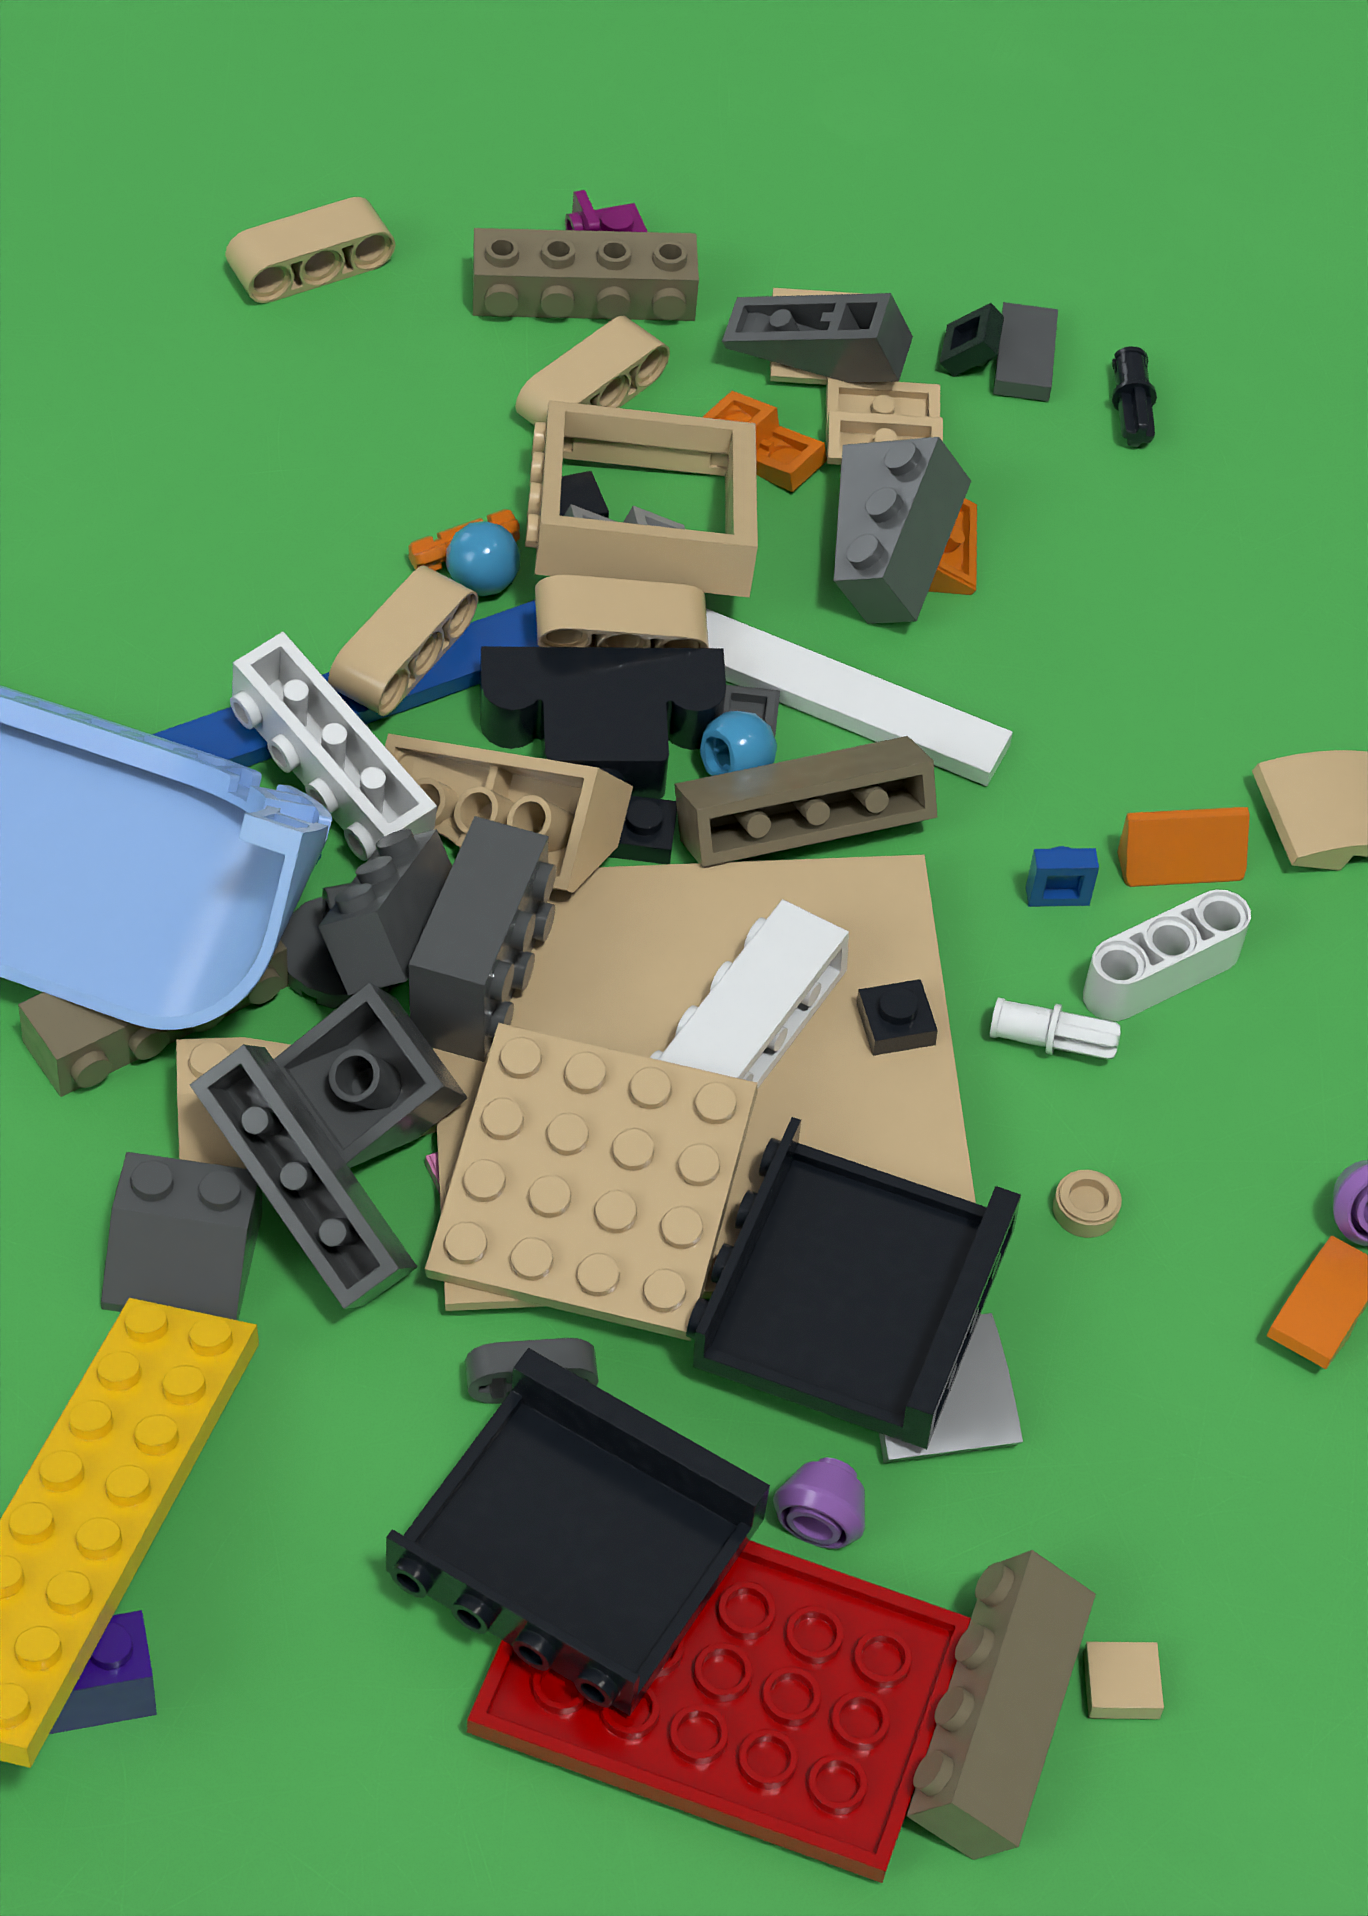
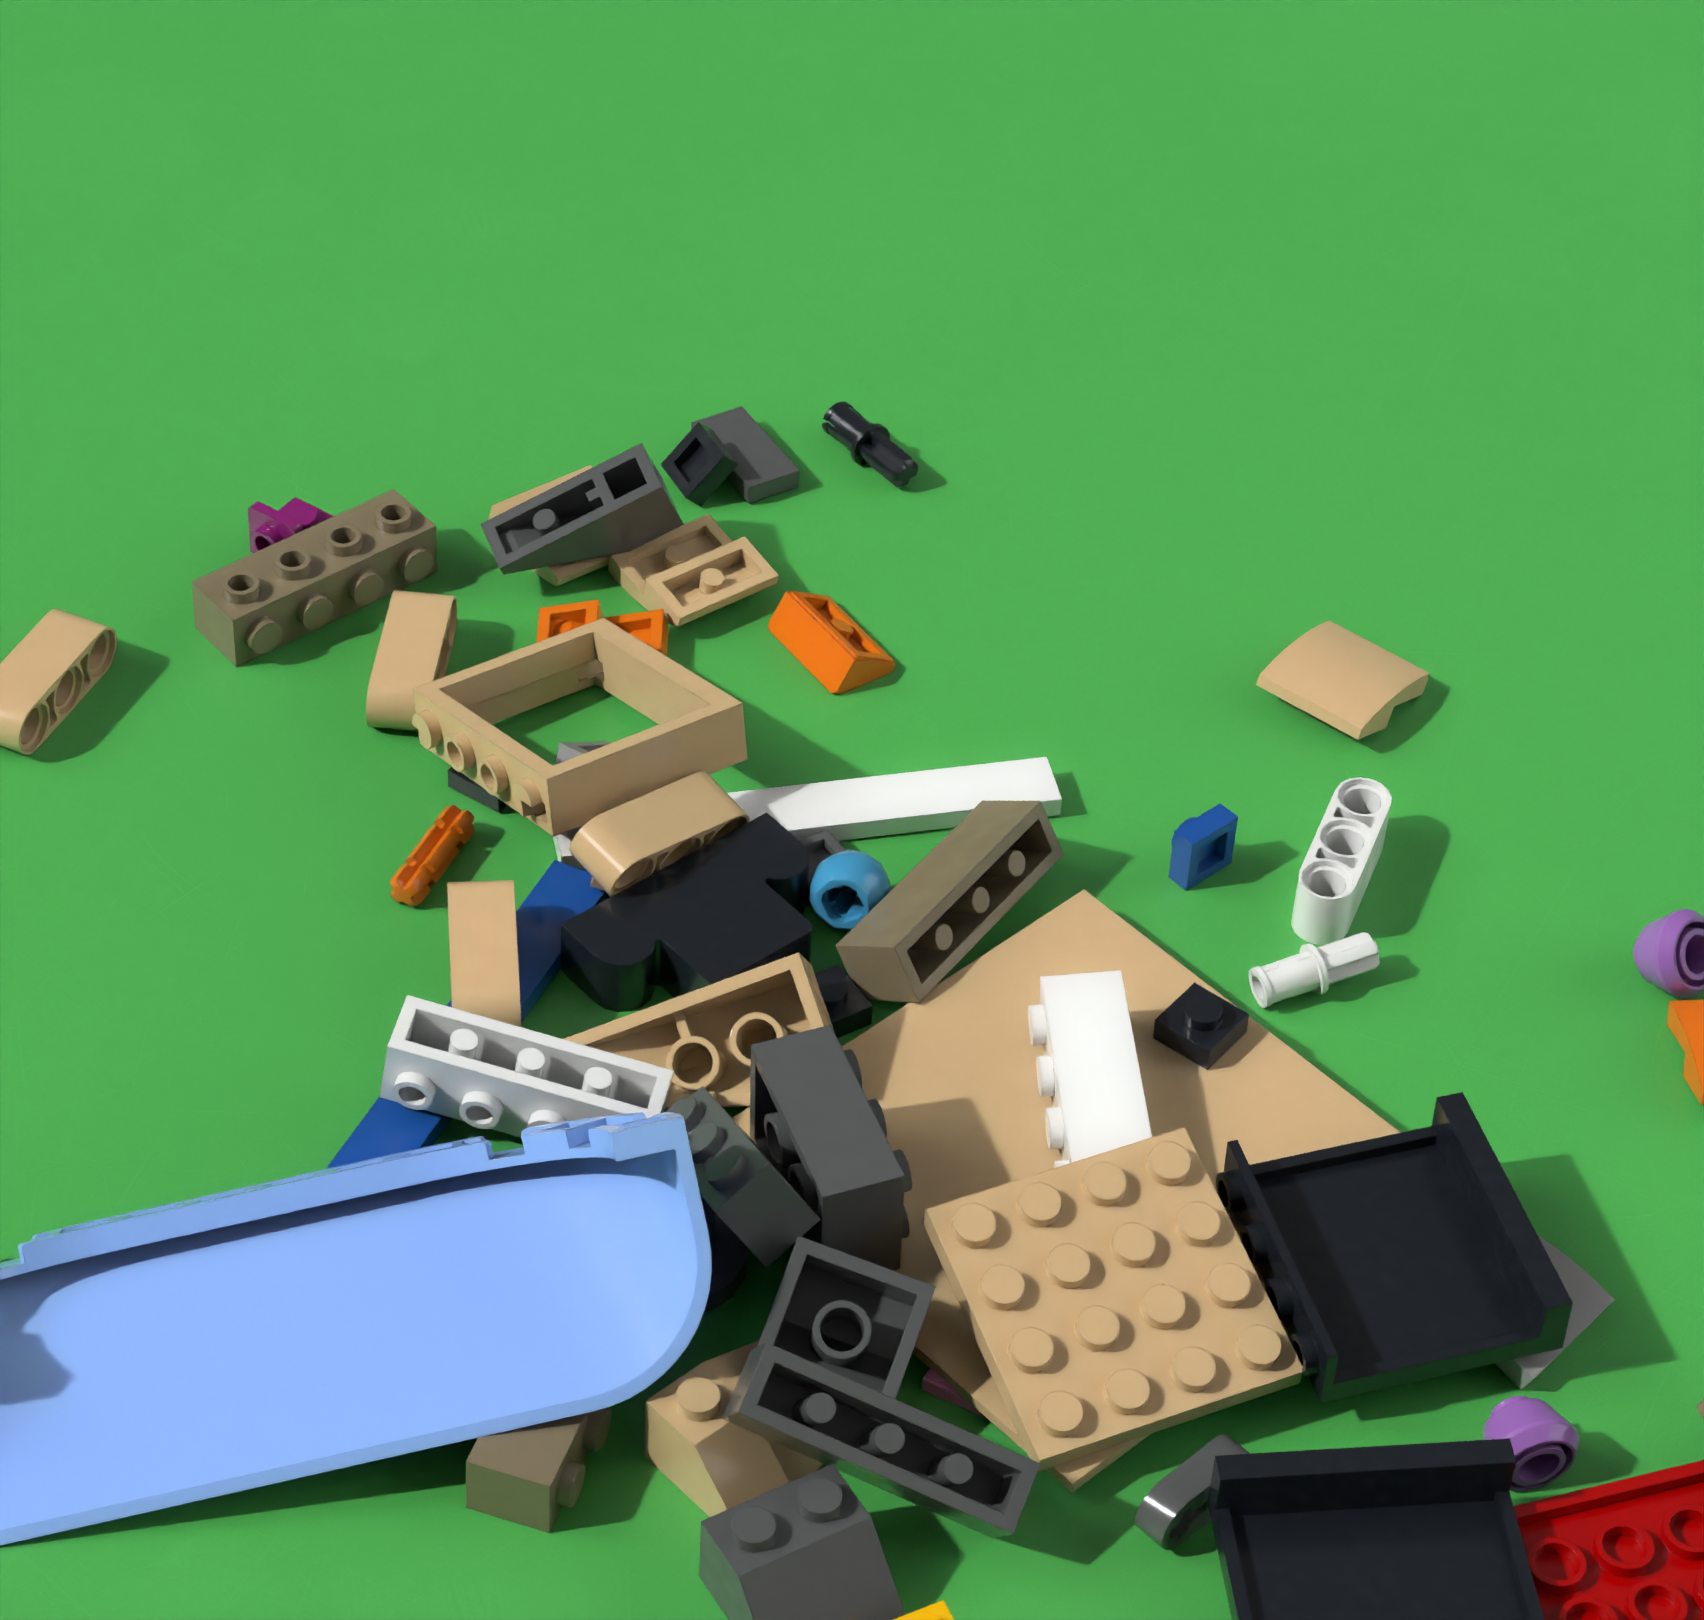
camera: 35 degrees left, 10 degrees down
(483, 558) = (473, 851): dark azure piece -> none
(895, 523) = (800, 634): dark grey wedge -> none
(1087, 1203) = (1477, 1081): tan tile -> none
(1184, 846) = (1268, 770): orange slope -> none

